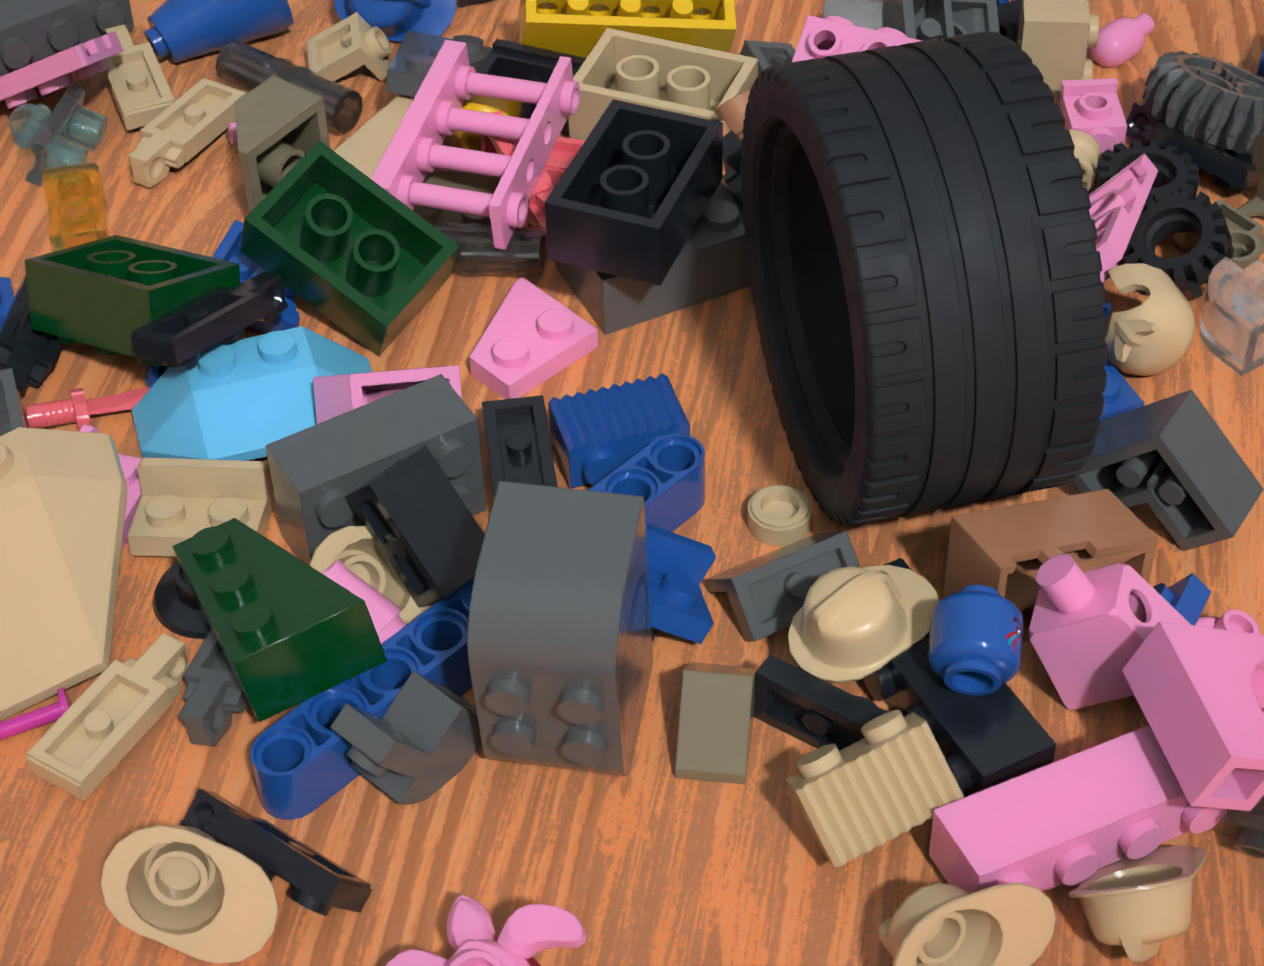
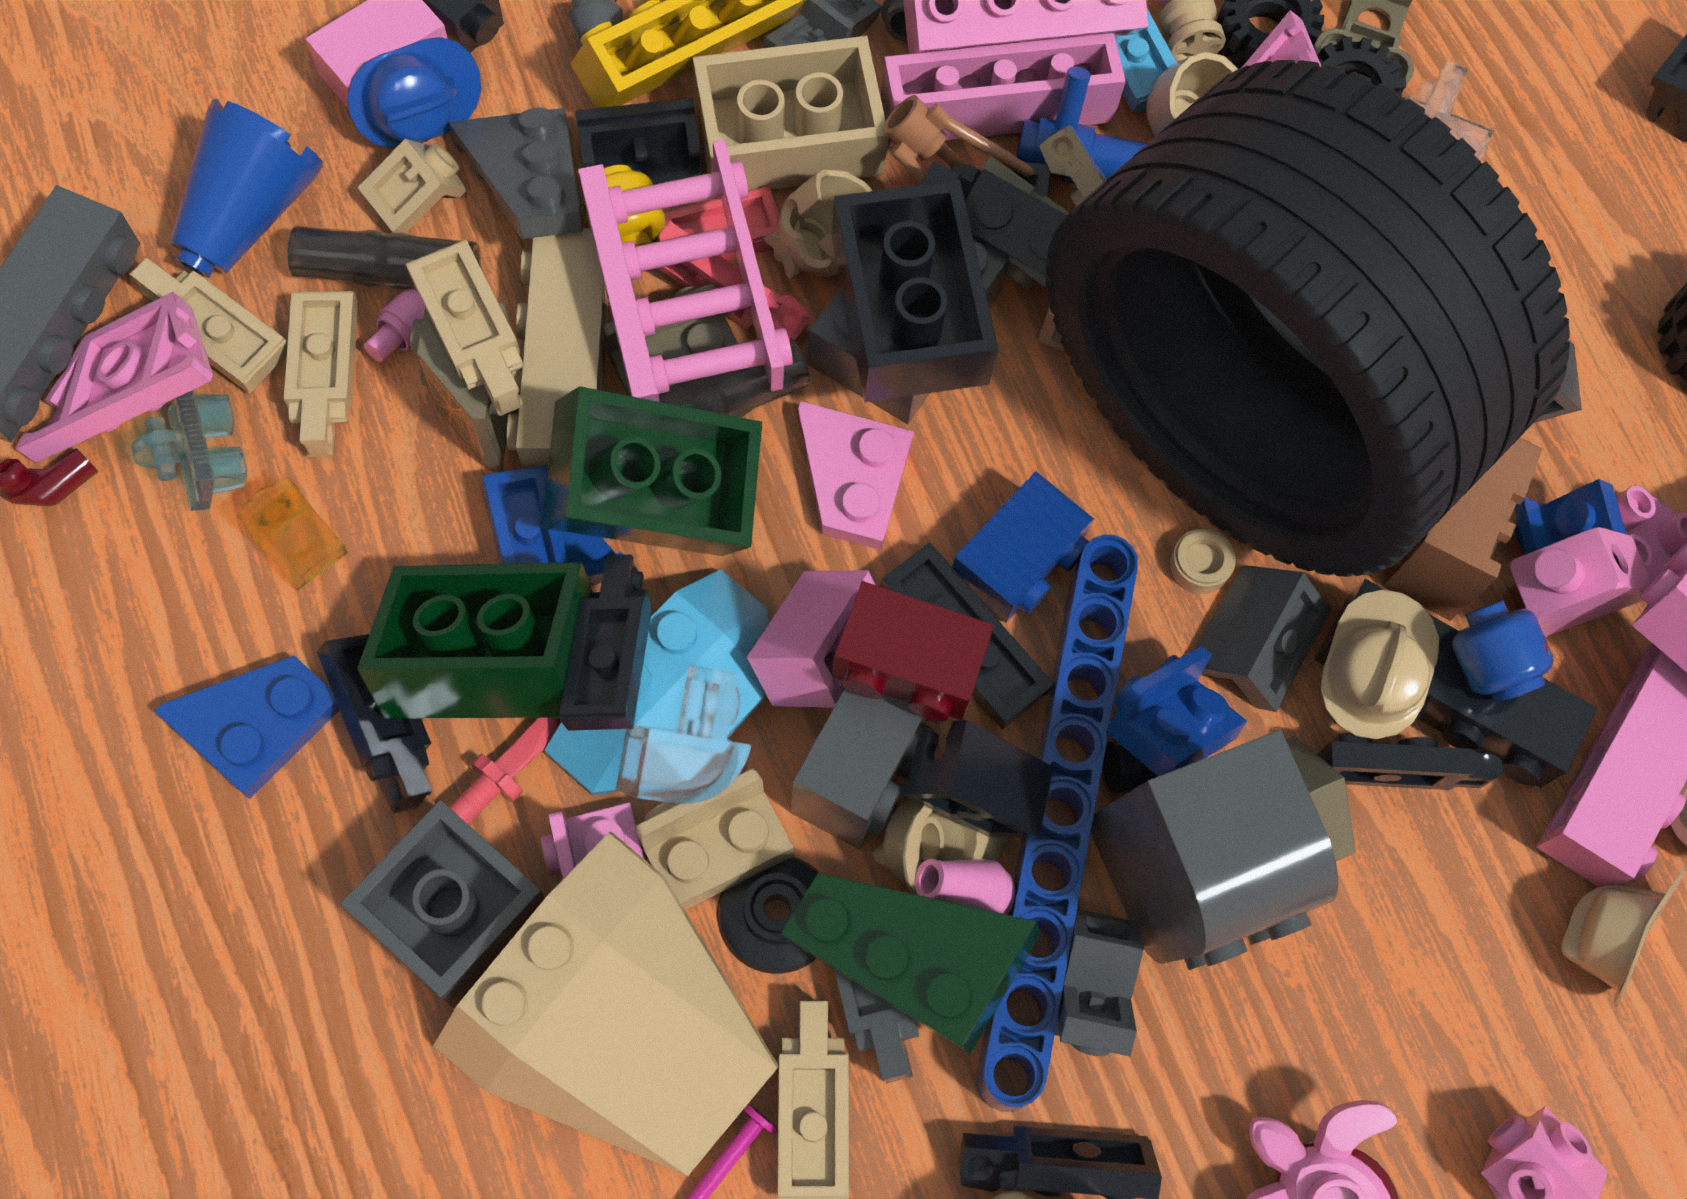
camera: 40 degrees left, 25 degrees up
(206, 425) = (697, 757): none -> clear brick
(281, 89) = (469, 322): none -> tan hinge
(422, 387) = (911, 652): none -> dark red brick
(873, 786) = (1495, 830): tan brick -> none

